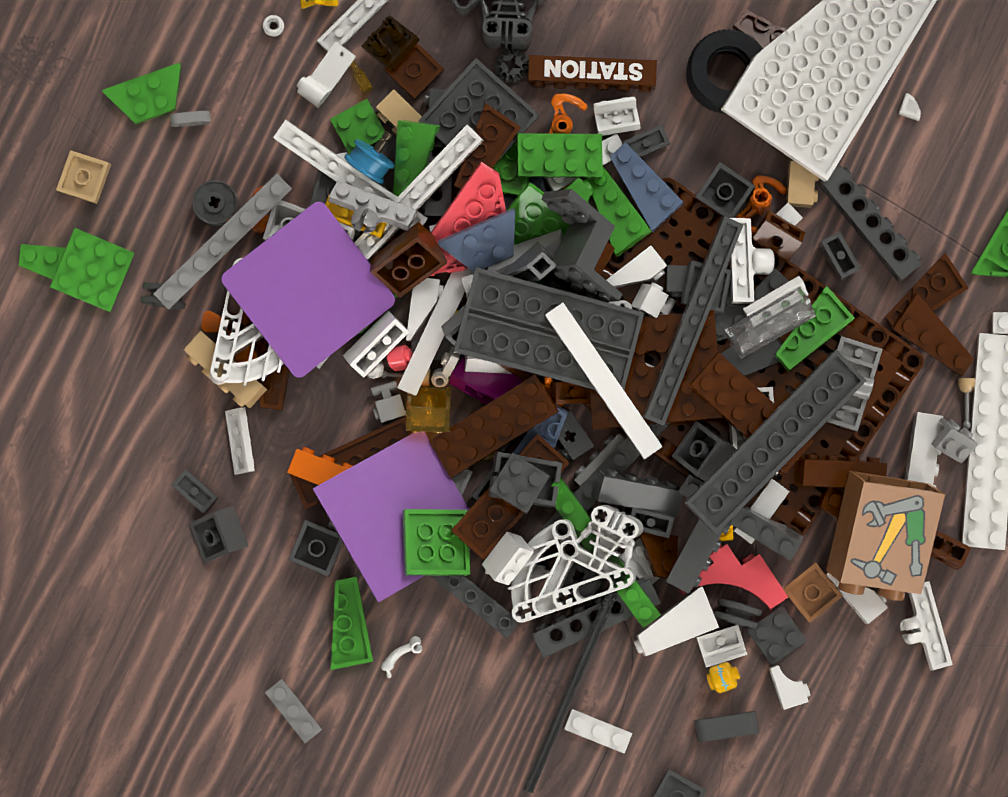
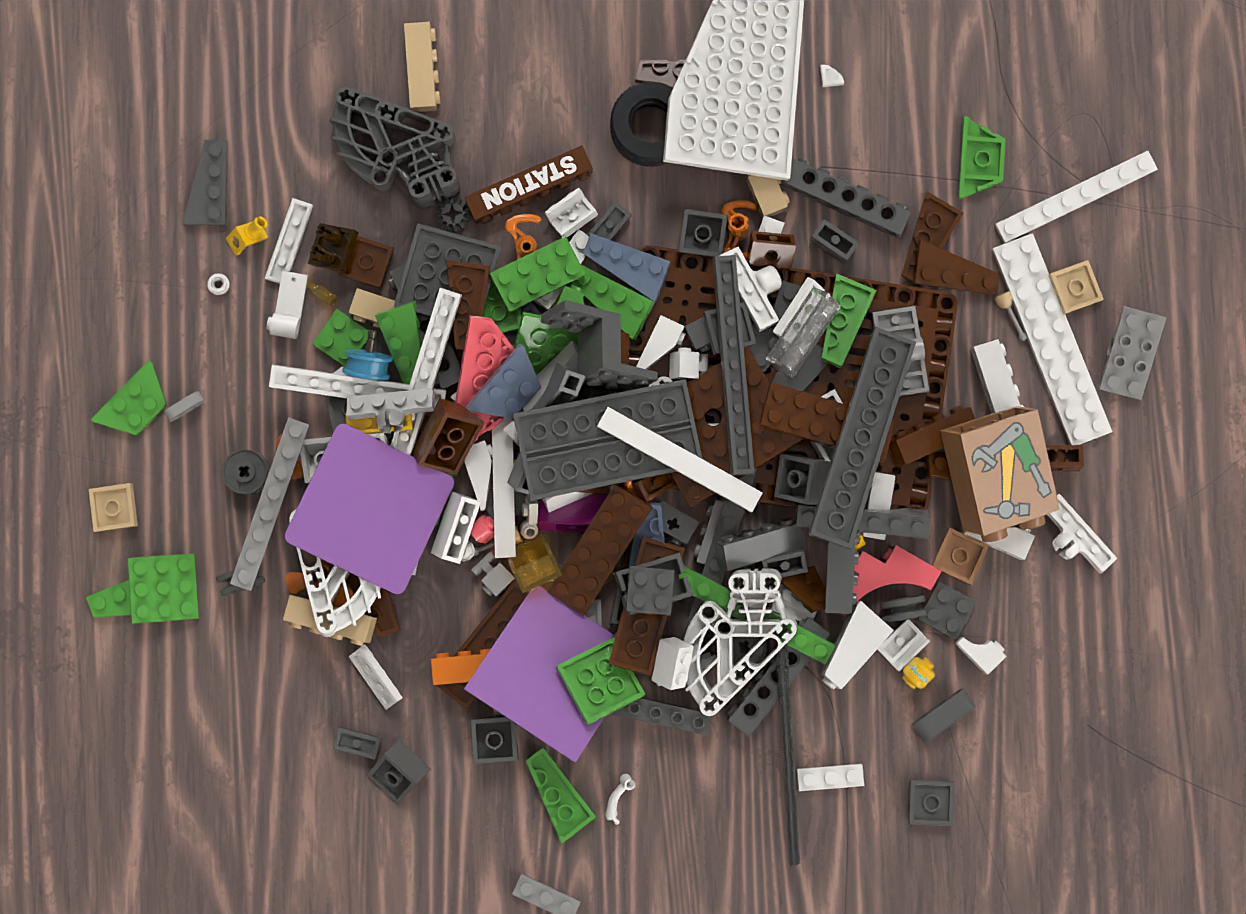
camera: 30 degrees left, 0 degrees up
(954, 441) = (1020, 356): light grey bracket -> none

